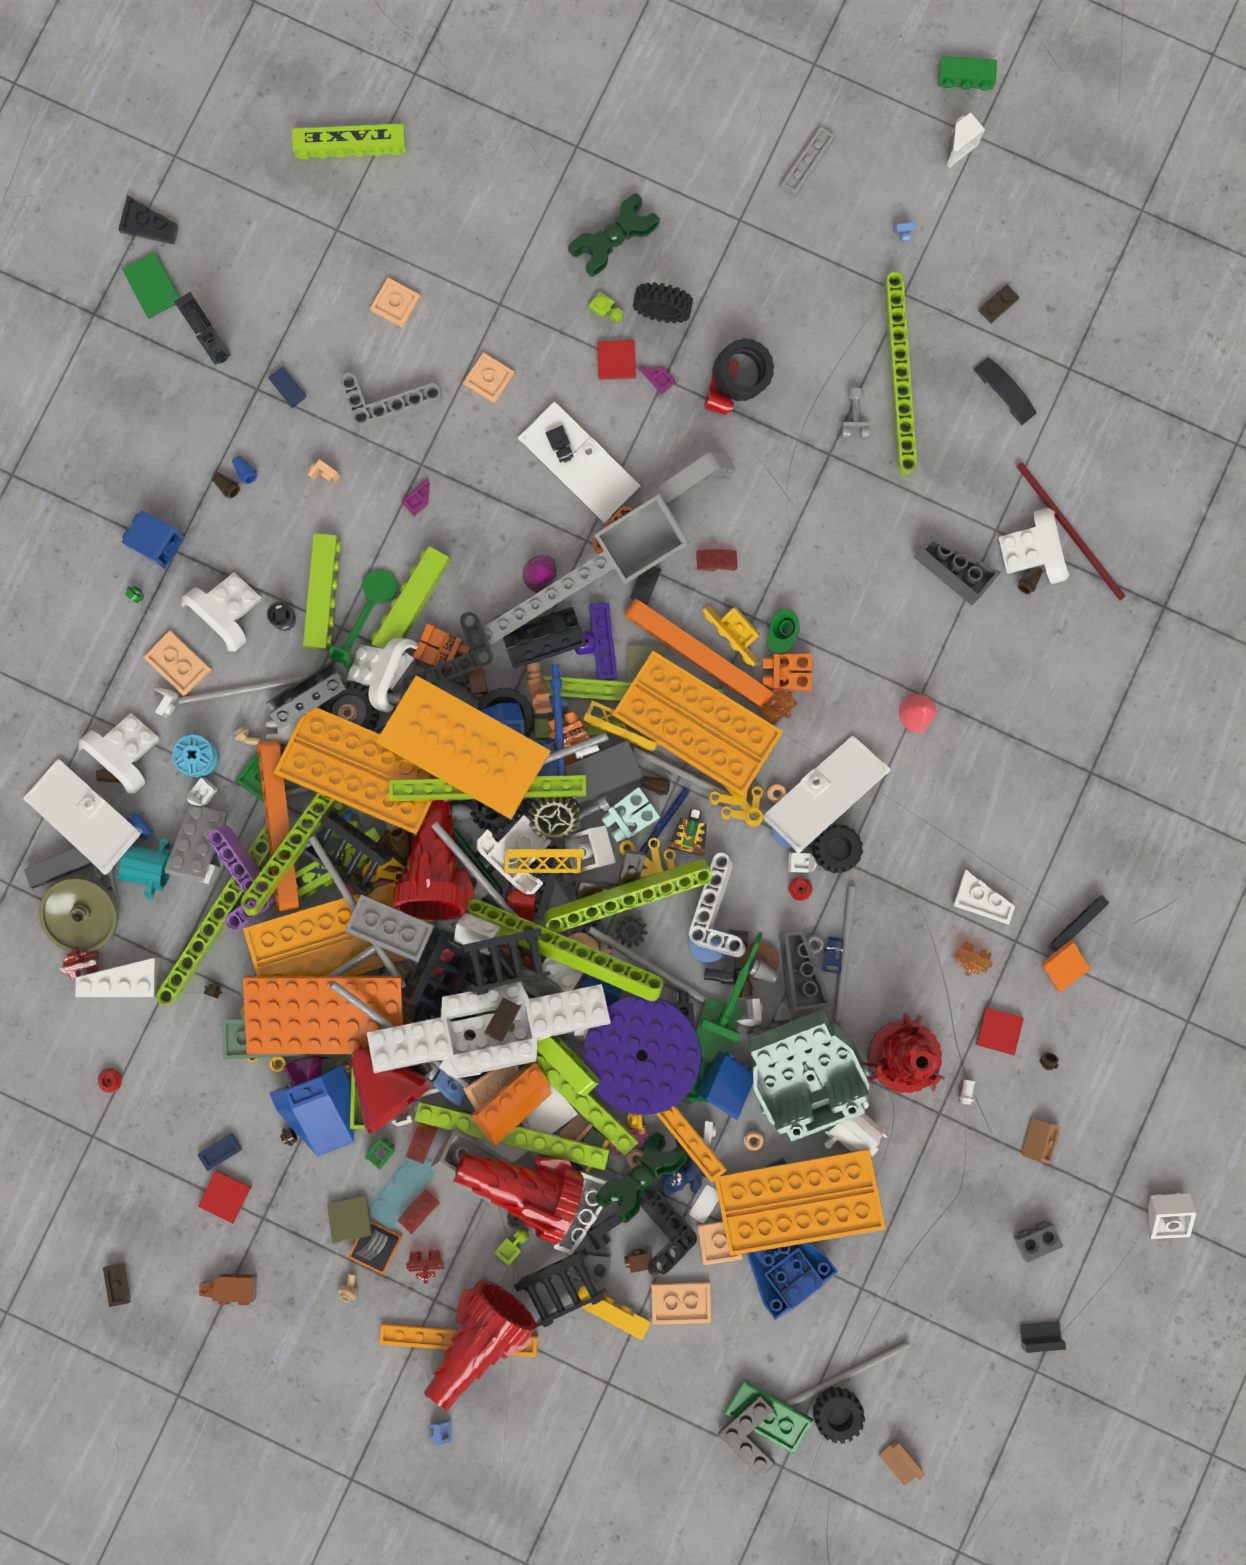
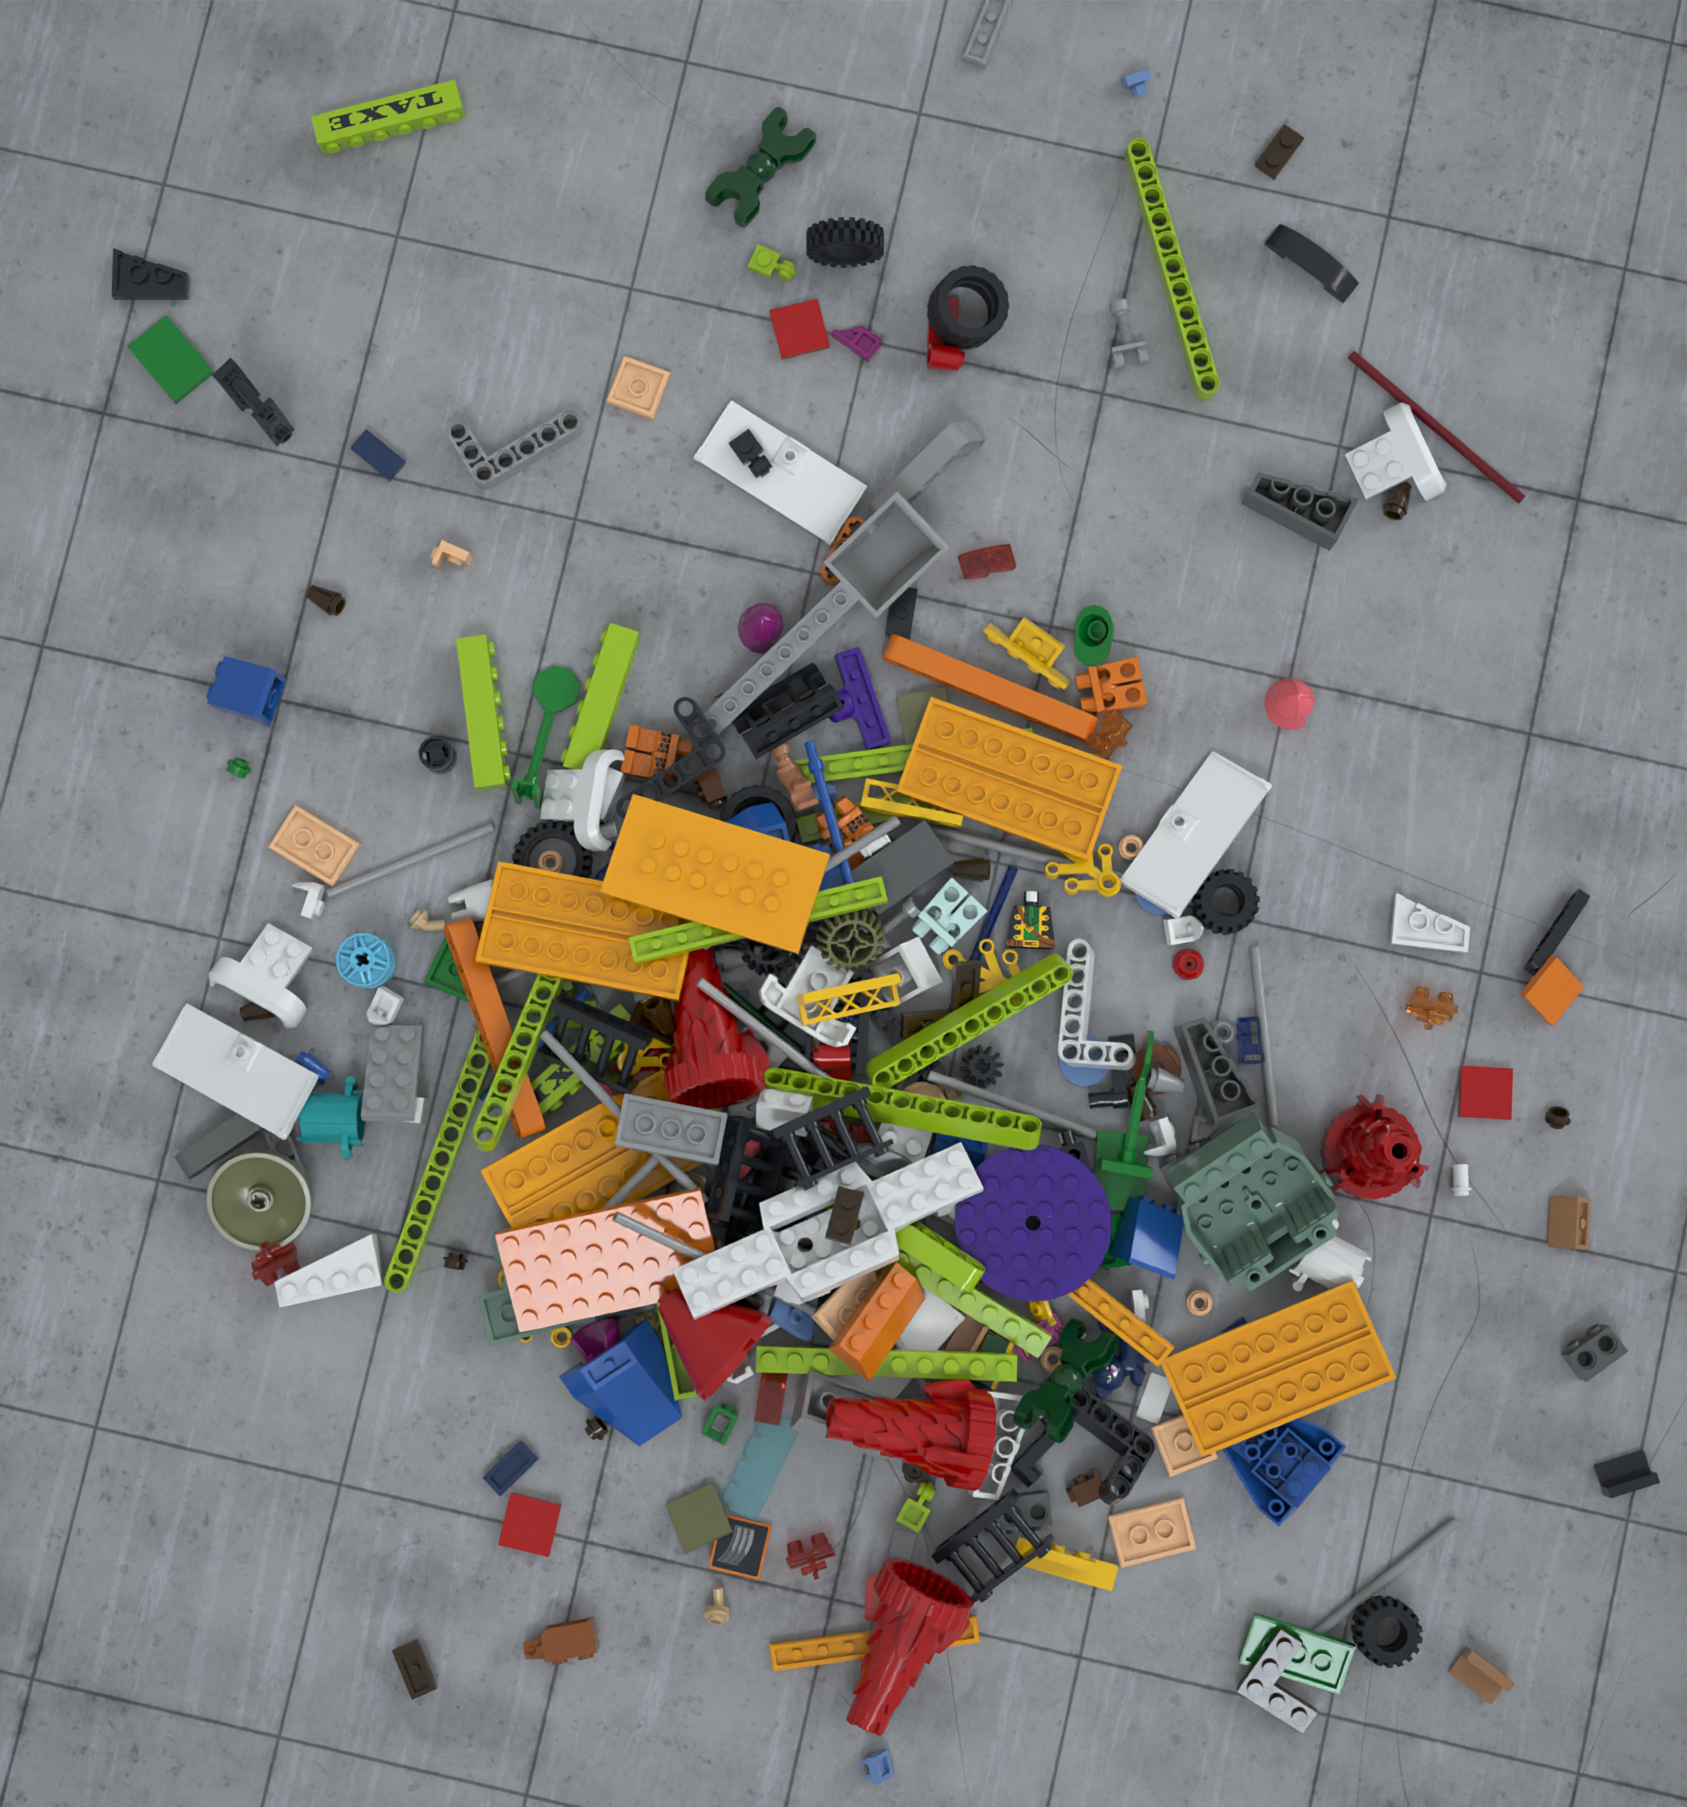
camera: 10 degrees left, 0 degrees up
(116, 1080) = (354, 1402): red plate -> none
(224, 607) = (359, 760): white piece -> none
(243, 877) = (464, 1105): medium lavender beam -> none
(244, 470) = (346, 575): blue cone -> none
(305, 695) = (492, 851): fence -> none
(395, 302) = (494, 315): light nougat tile -> none
(417, 499) = (580, 565): magenta tile -> none
(418, 1211) = (786, 1488): clear red slope -> none

